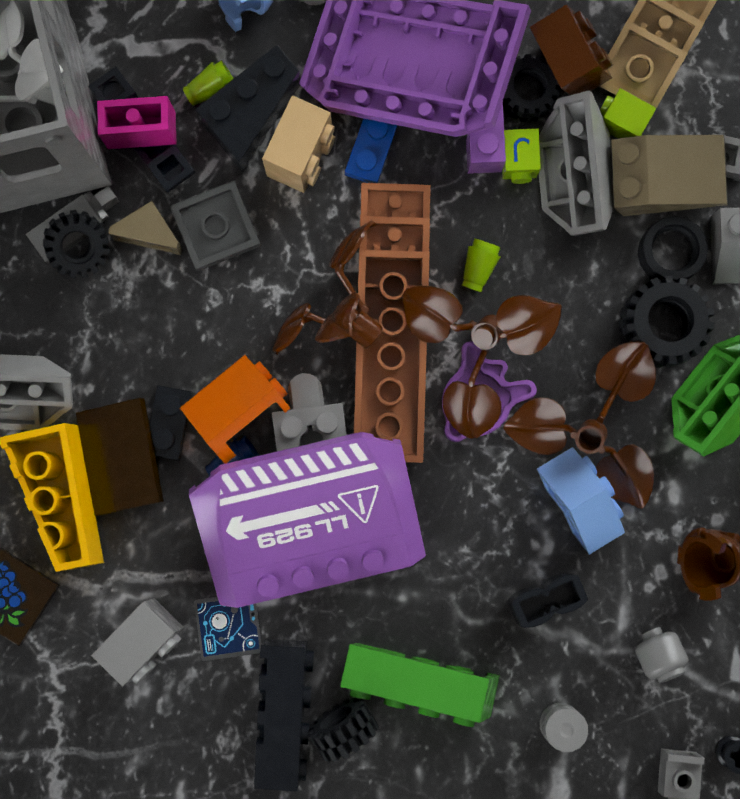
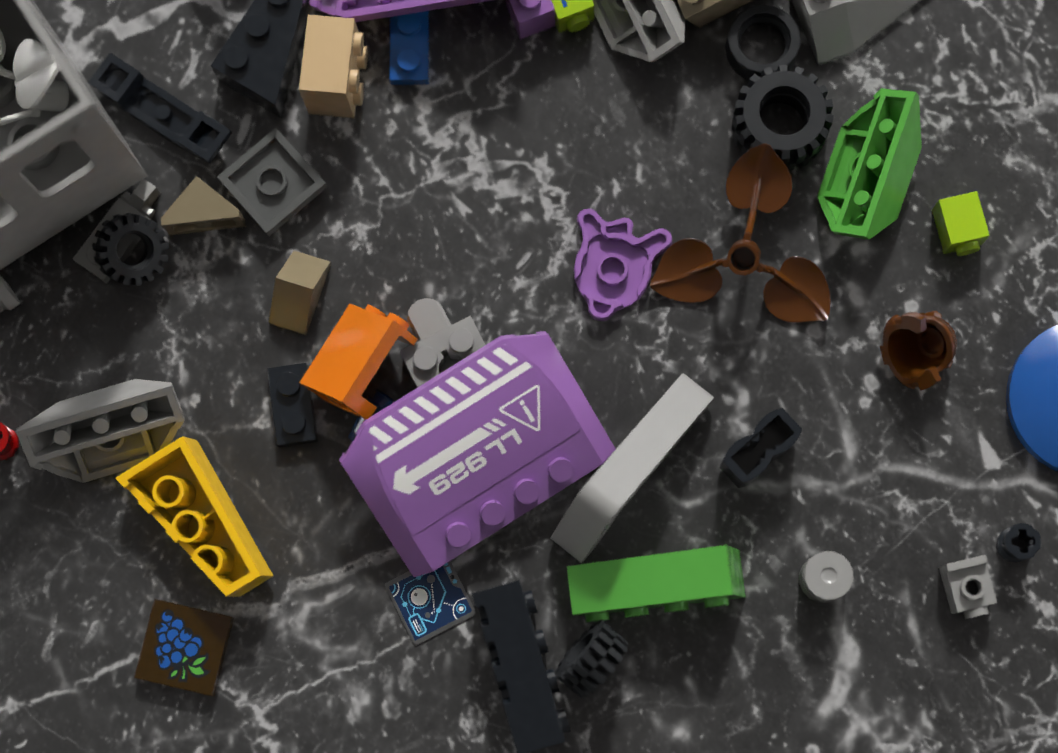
camera: 10 degrees left, 5 degrees down
(119, 456) = (252, 457): dark brown tile -> none
(136, 122) = (153, 100): dark pink brick -> none
(137, 641) = (340, 642): light grey brick -> none
(205, 327) = (298, 292): none -> dark tan slope
(207, 83) = (213, 37): lime cone -> none
(345, 319) = (441, 225): reddish brown plant -> none
(393, 368) = (492, 207): nougat slope -> none
(434, 579) = (630, 467): none -> light grey beam
(480, 263) = (565, 126): lime cone -> none
(521, 318) = (627, 159): reddish brown plant -> none
(583, 499) = (761, 330): light blue brick -> none
(661, 655) = (903, 466): light grey head -> none

